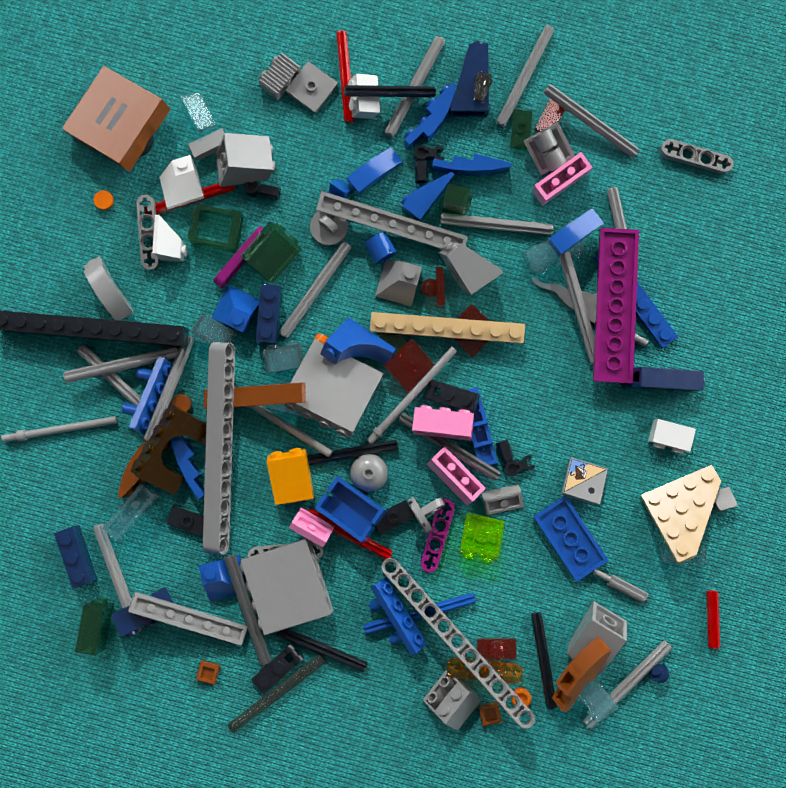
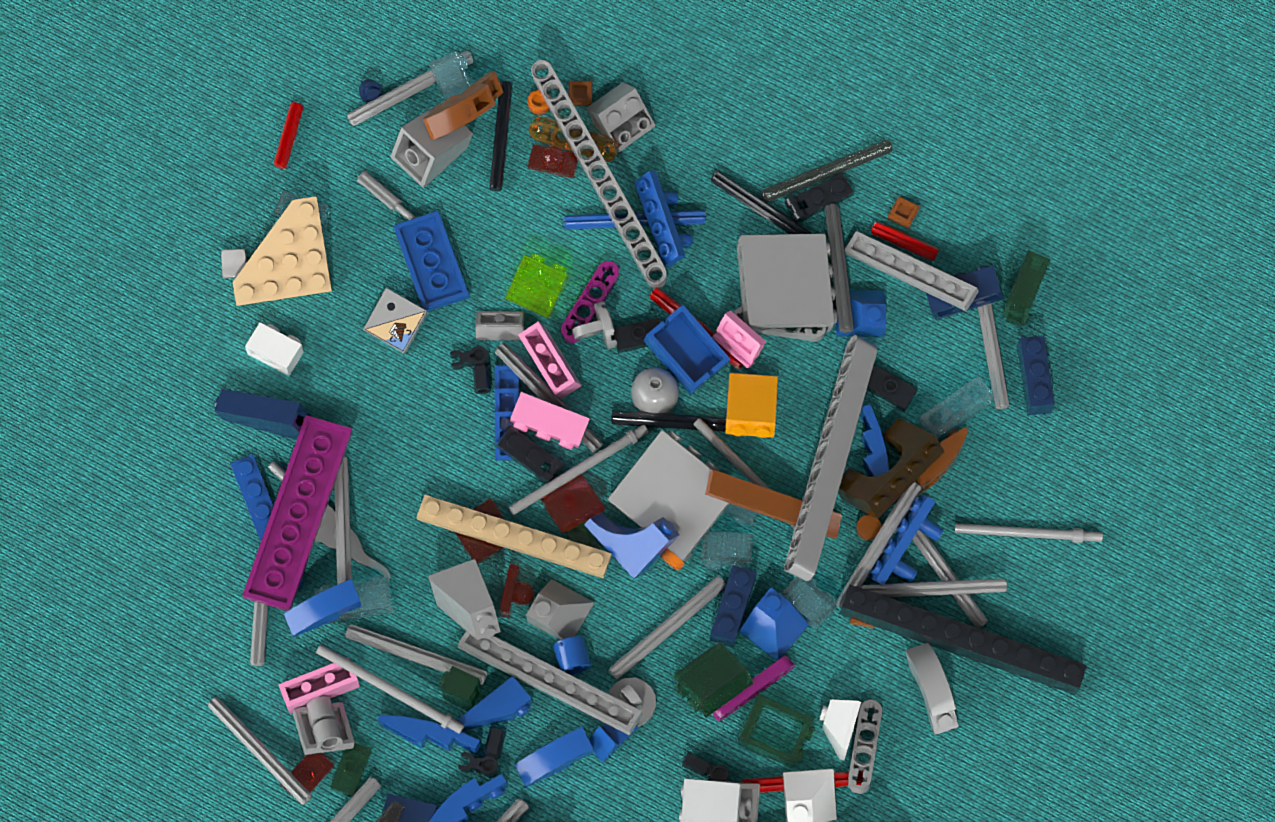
camera: 170 degrees left, 15 degrees down
(103, 200) = (915, 806): orange tile -> none
(202, 647) = (904, 241): none -> red axle
(460, 171) = (445, 720): none -> light grey bar
(695, 160) = (138, 678): light grey beam -> none

